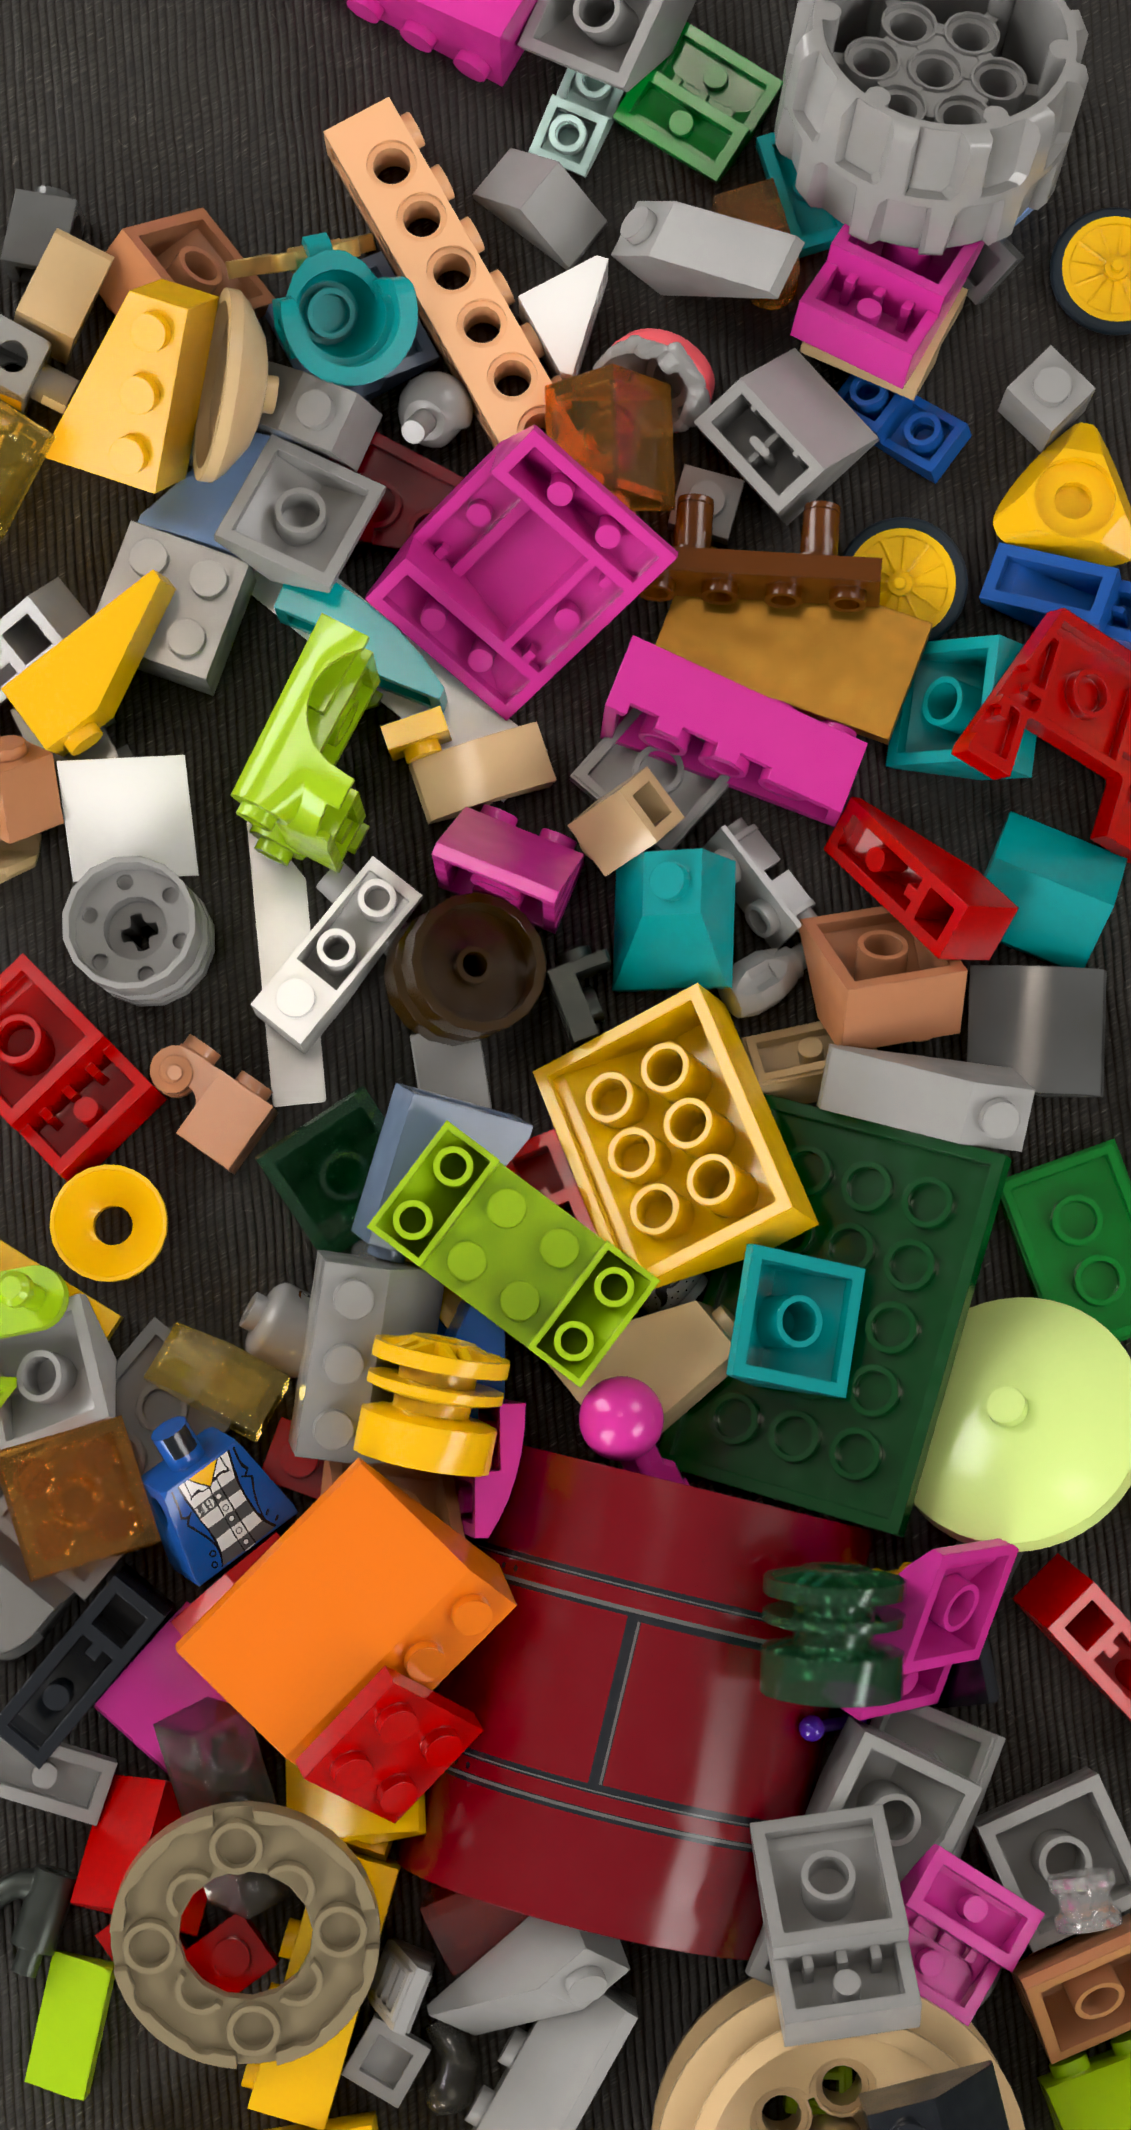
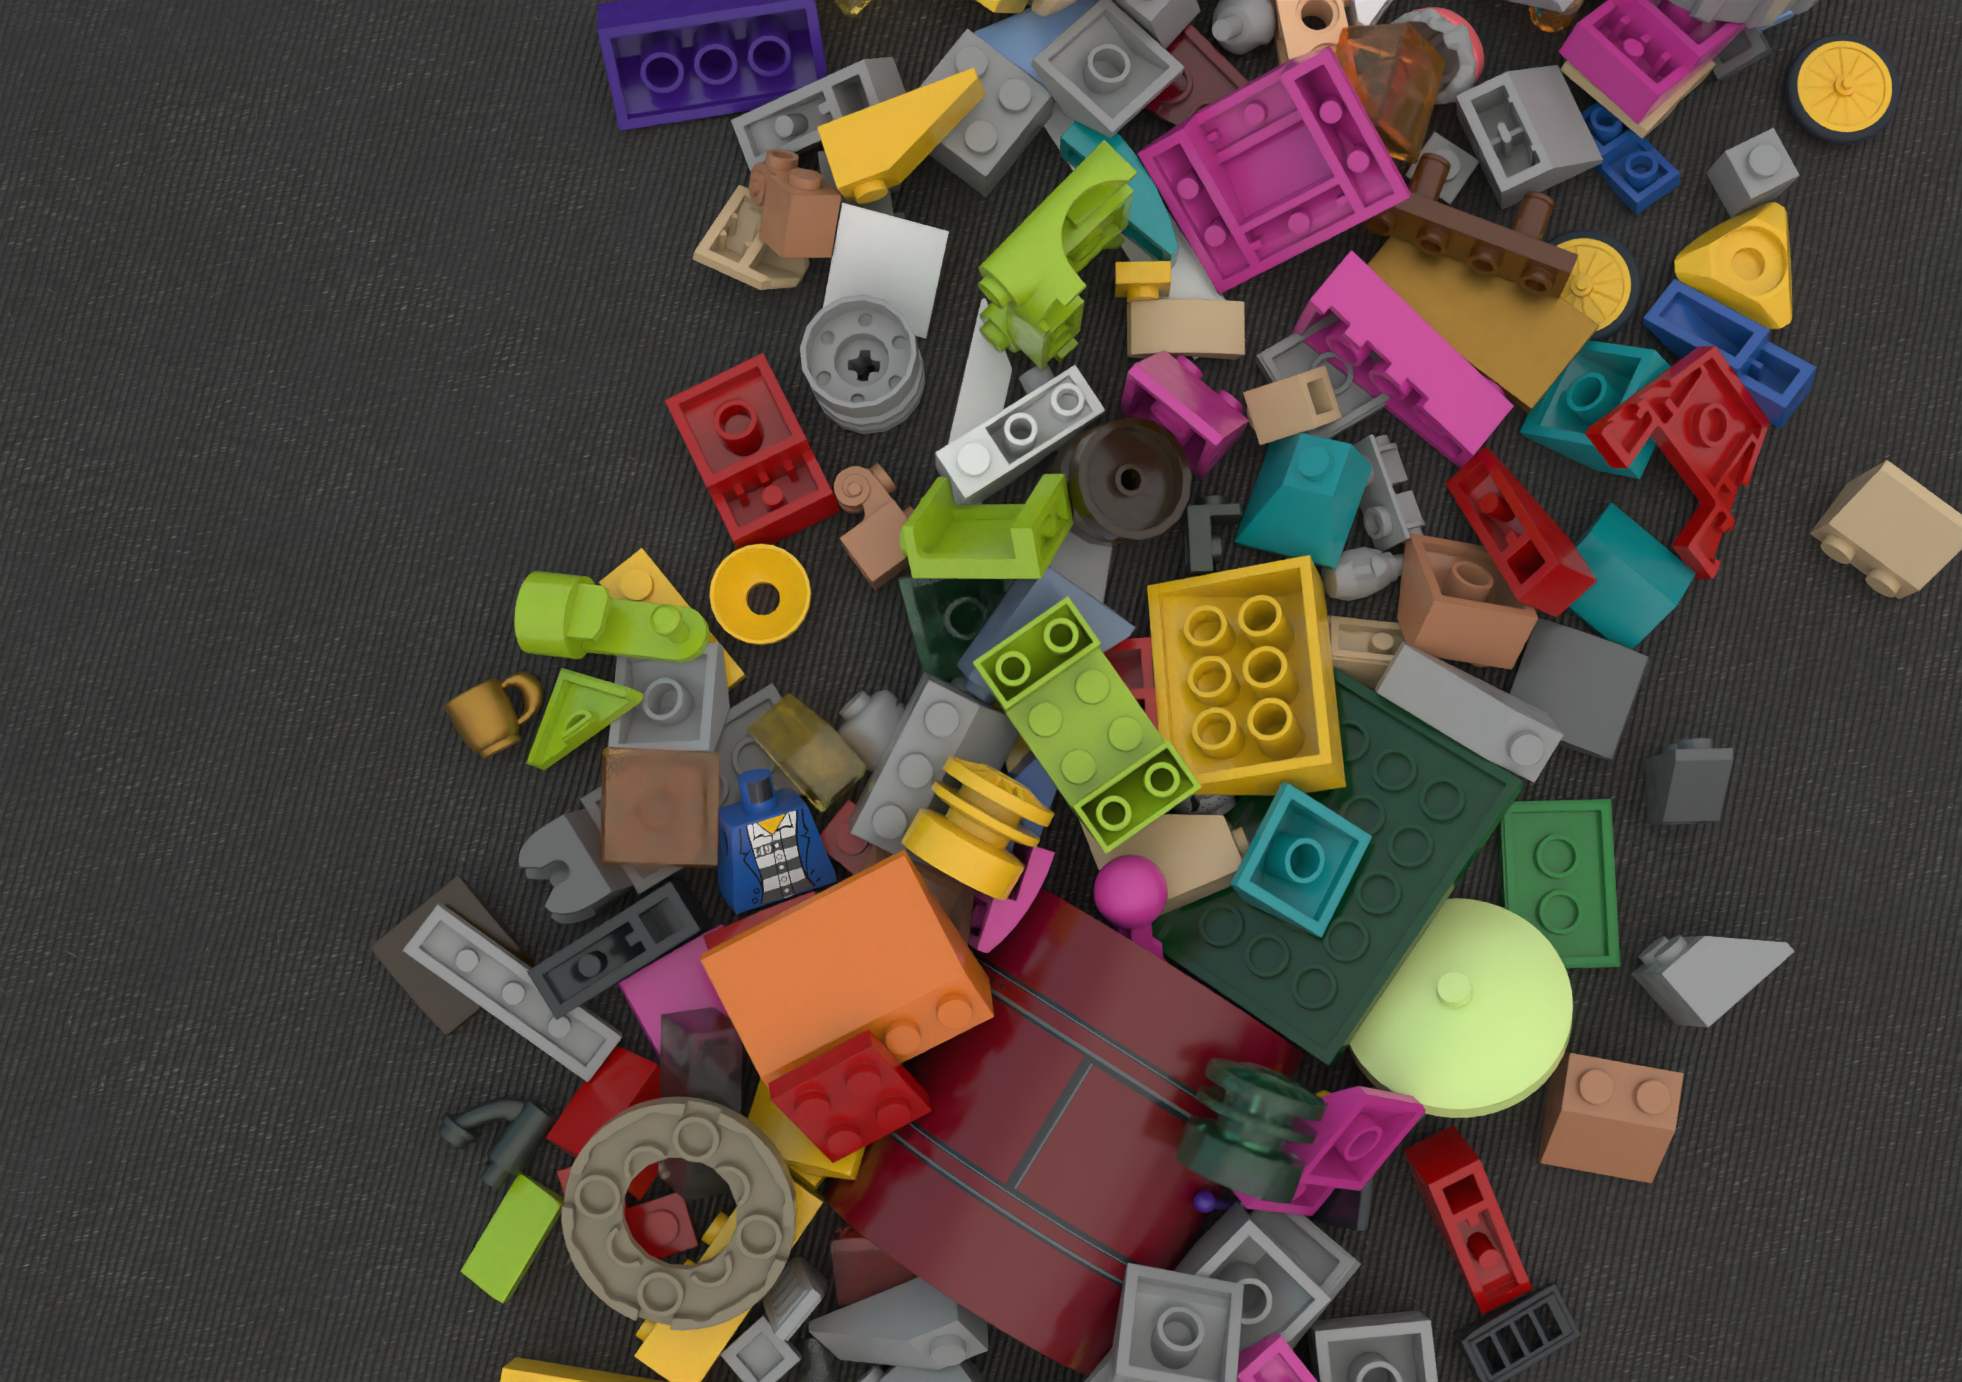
camera: 20 degrees right, 0 degrees up
(337, 1082) = (987, 538): none -> lime panel

